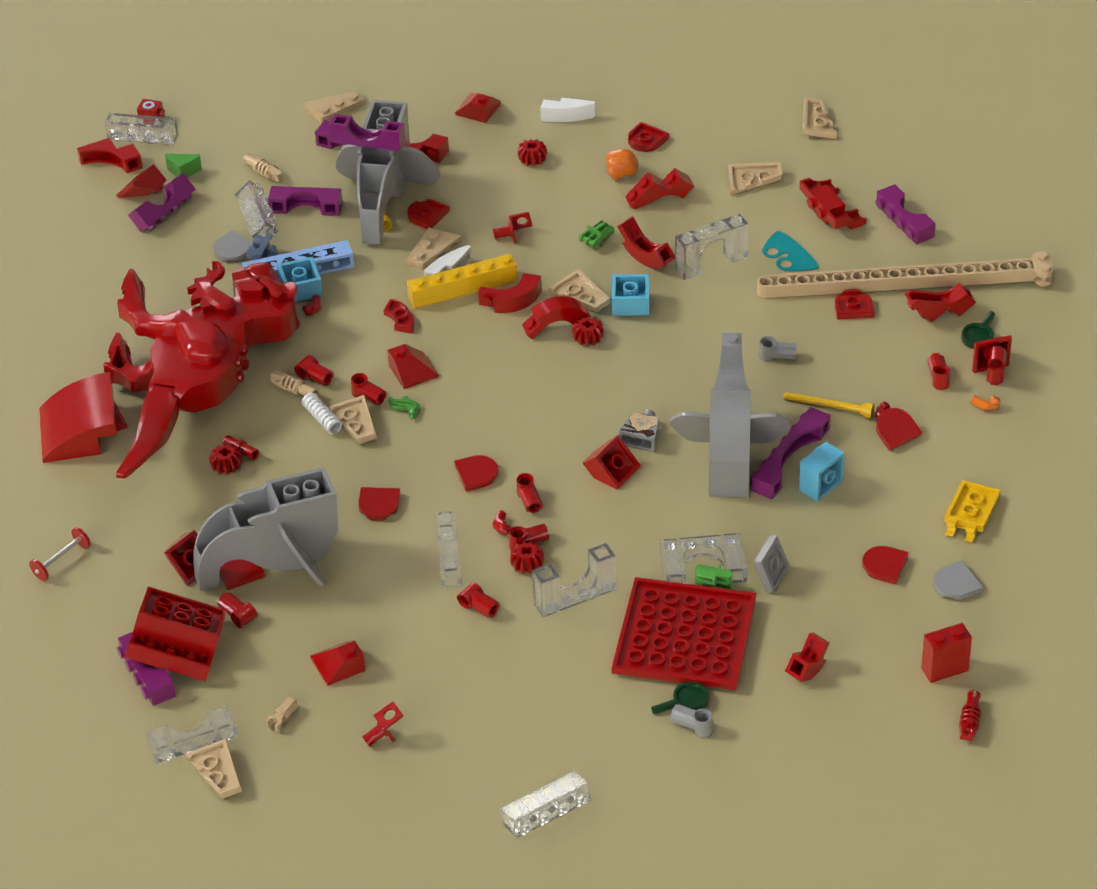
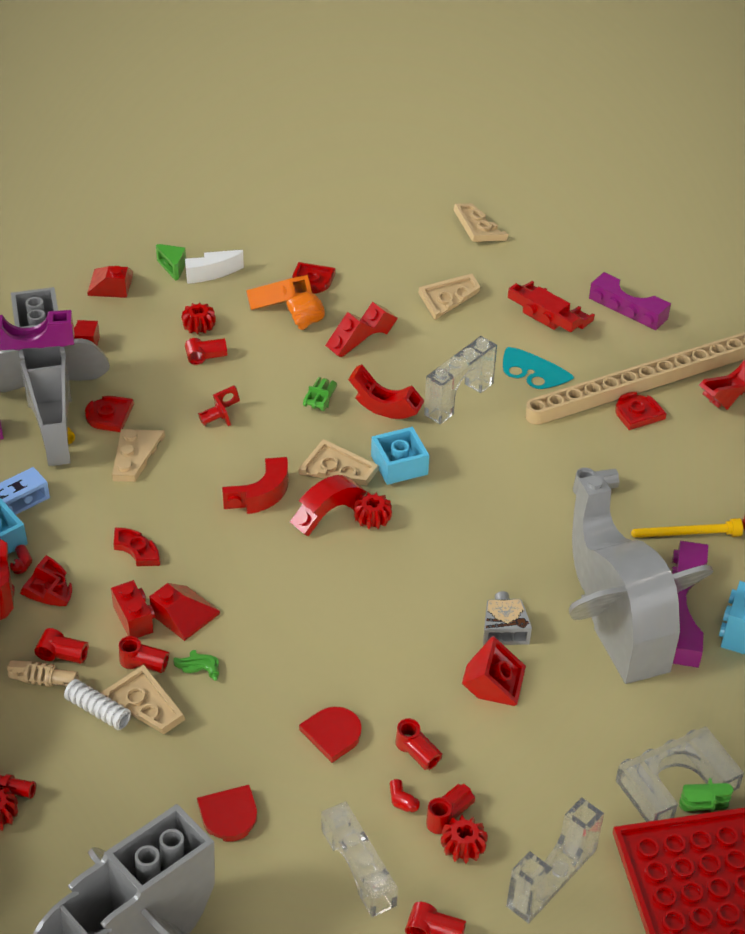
camera: 25 degrees left, 0 degrees up
(325, 326) = (48, 584): none -> red brick
(374, 357) = (132, 609): none -> red brick
(451, 260) = (166, 472): white slope -> none
(461, 281) = (192, 485): yellow brick -> none
(519, 178) = (199, 351): none -> red piece
(535, 97) = (171, 259): none -> bright green slope
(605, 143) = (278, 292): none -> orange slope

